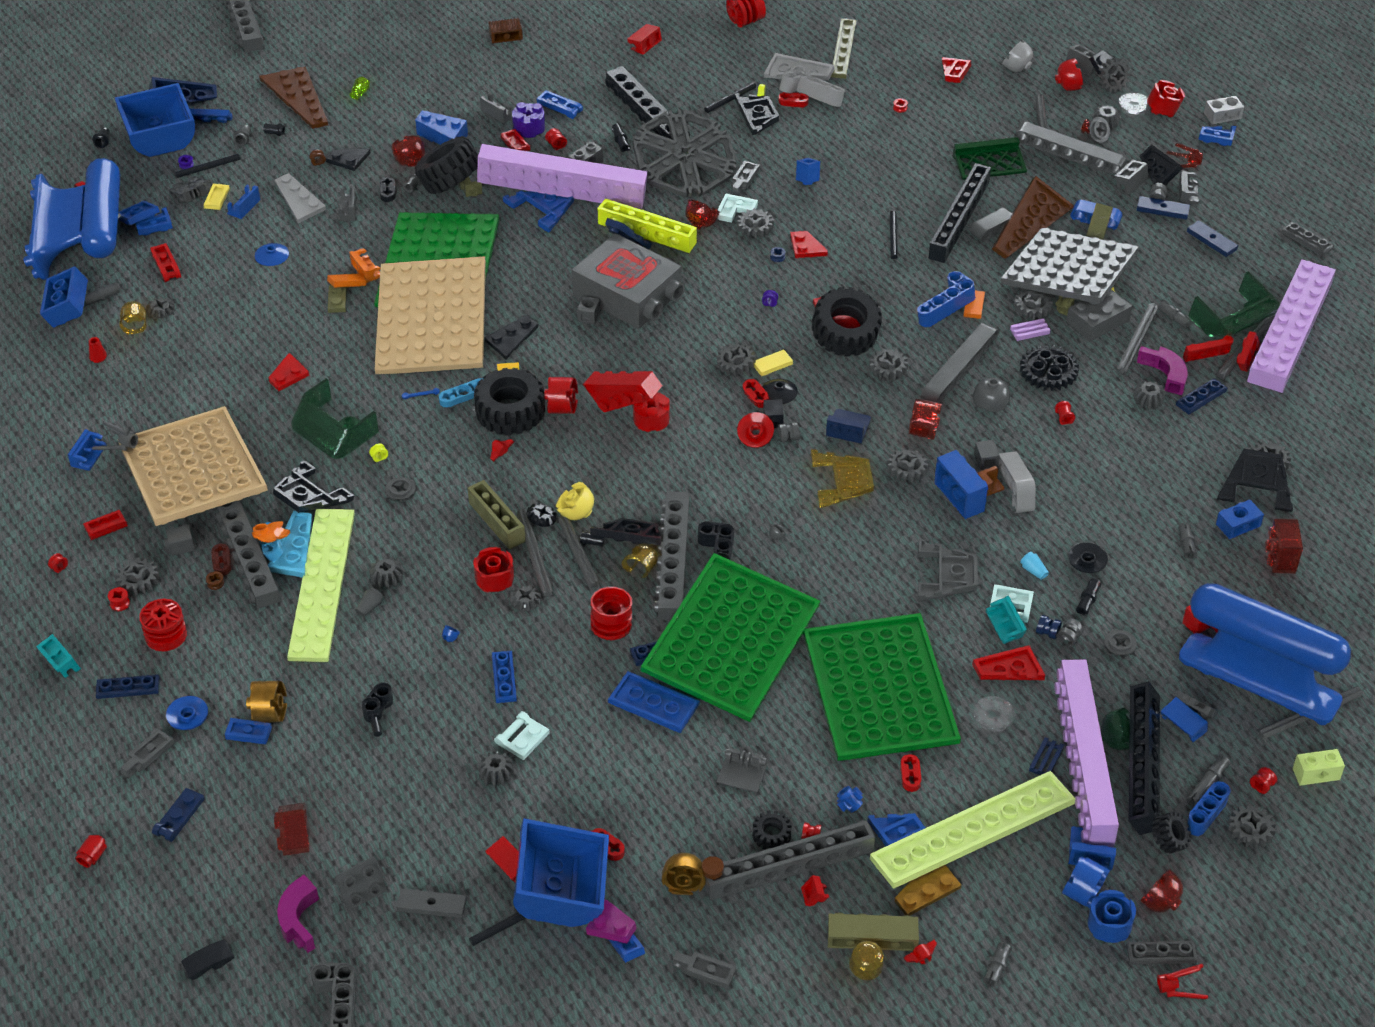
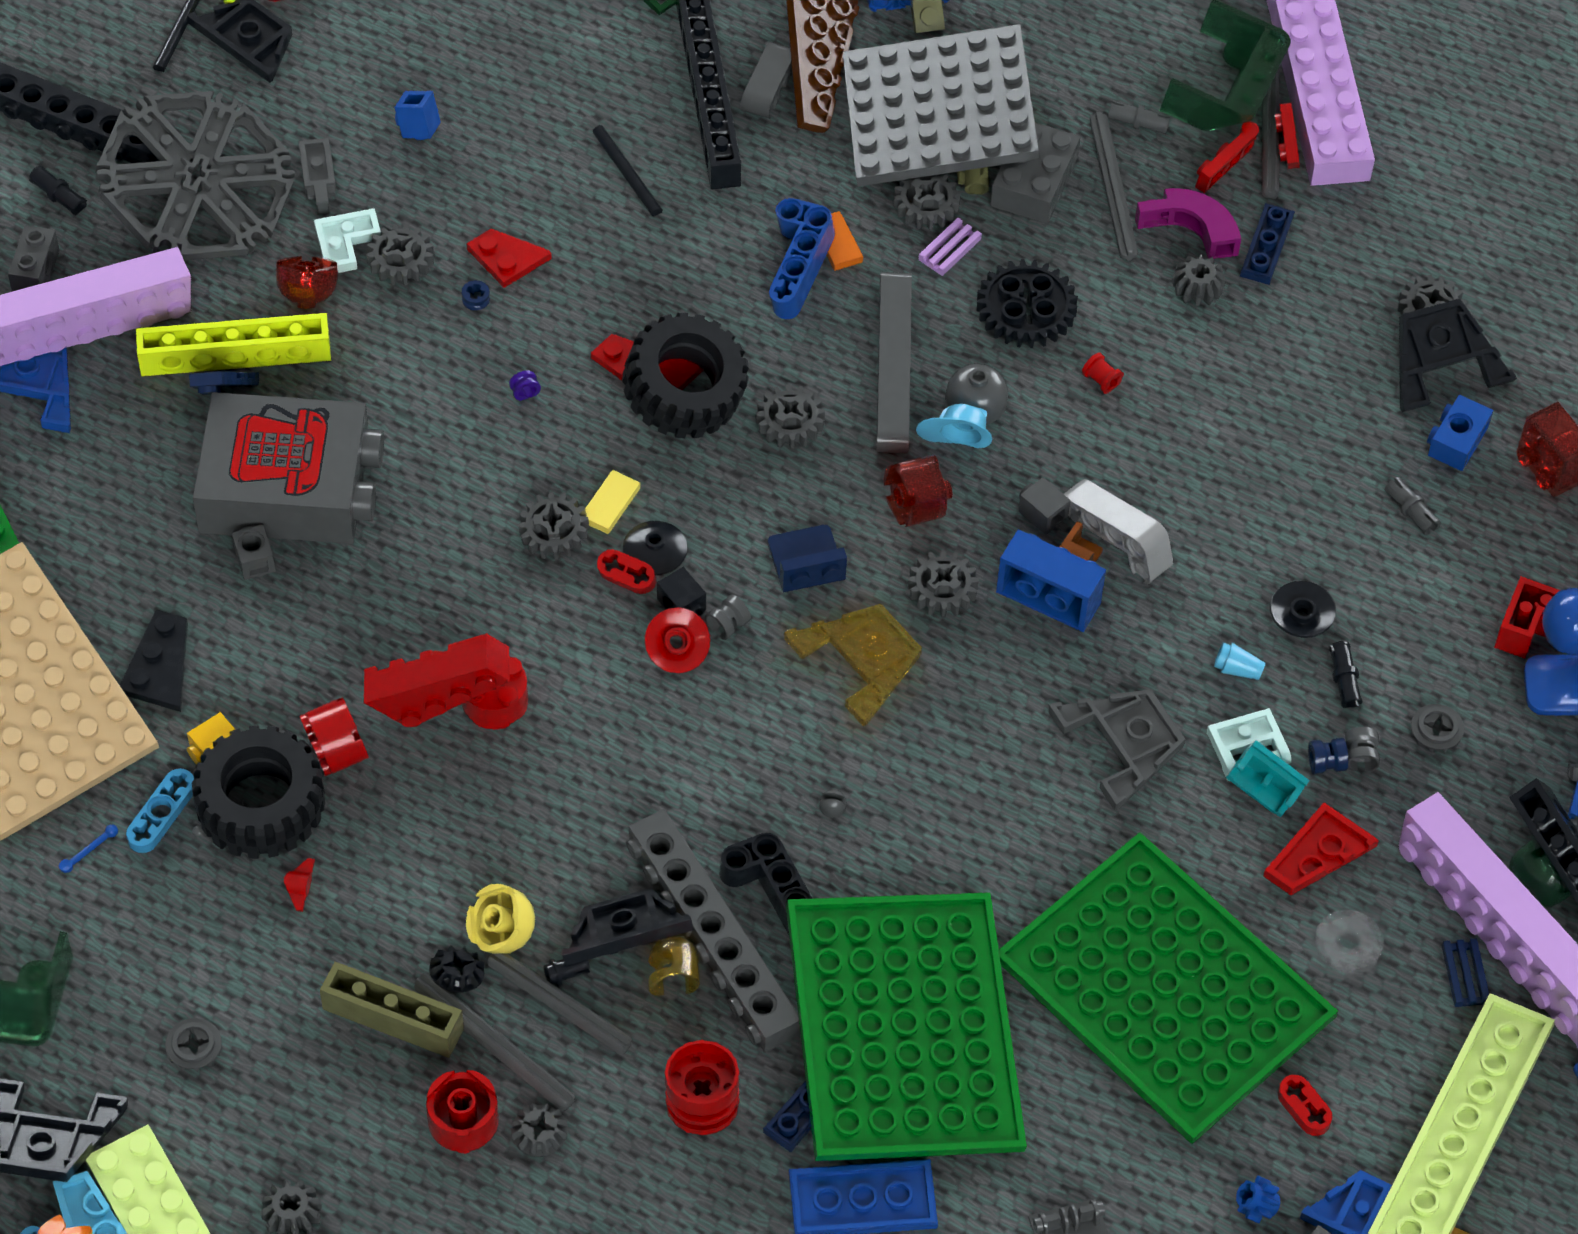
camera: 35 degrees left, 10 degrees up
(374, 452) = (108, 997): neon yellow bush -> none
(968, 401) = (957, 425): none -> medium azure piece

